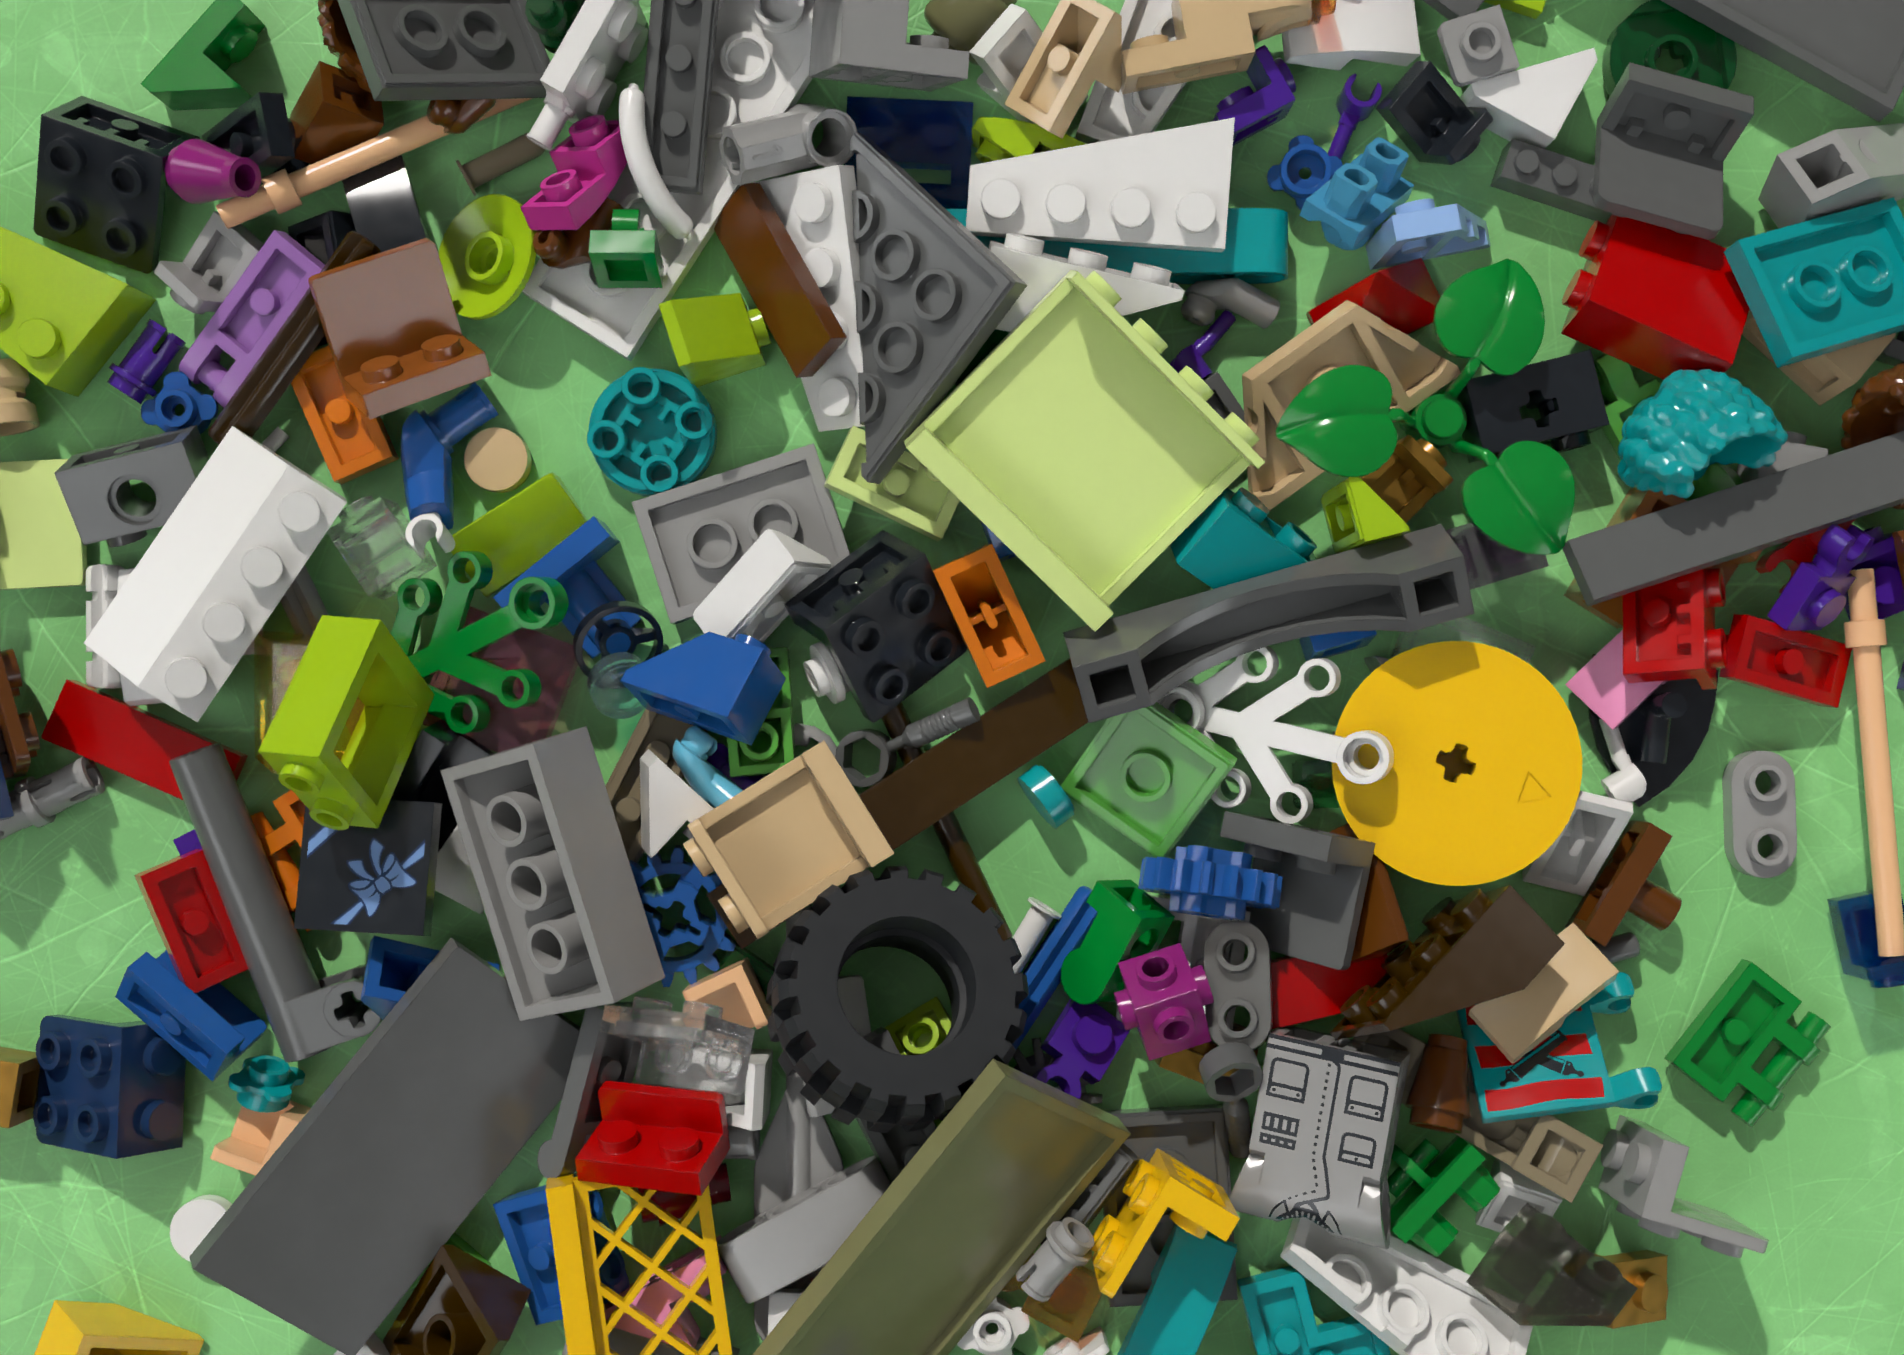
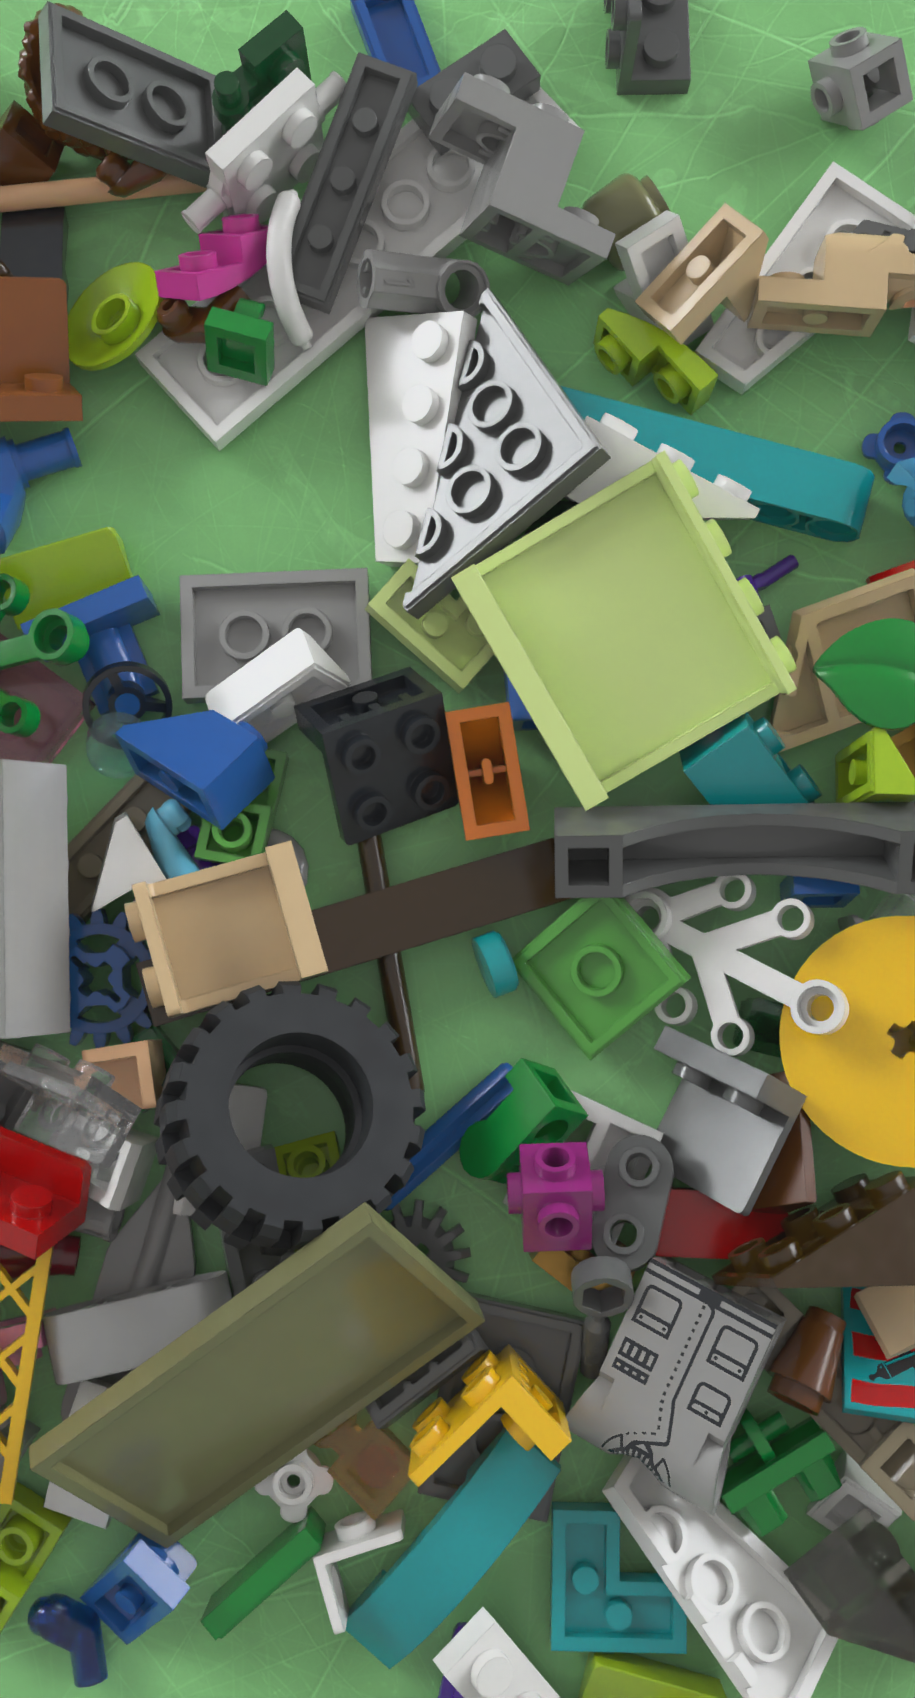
camera: 20 degrees right, 5 degrees down
(497, 460) = (68, 506): tan tile -> none
(499, 161) = (154, 239): dark tan piece -> none
(652, 431) = (220, 518): teal tile -> none
(715, 336) = (300, 441): lime slope -> none
(778, 280) = (377, 408): reddish brown tile -> none
(825, 674) = (314, 788): white plate -> none
(915, 736) = (384, 869): dark grey piece -> none
(920, 137) = (551, 319): clear blue plate -> none
(1032, 930) = (444, 1092): white piece -> none
(1066, 1247) = (385, 1421): light grey pin -> none
(1082, 1045) = (462, 1220): dark purple plate -> none
(1123, 191) = (720, 408): white wing -> none
(1210, 882) = (633, 1091): blue gear -> none
(1228, 294) = (796, 538): light grey arm -> none
(1267, 105) = (869, 373): dark purple bracket -> none

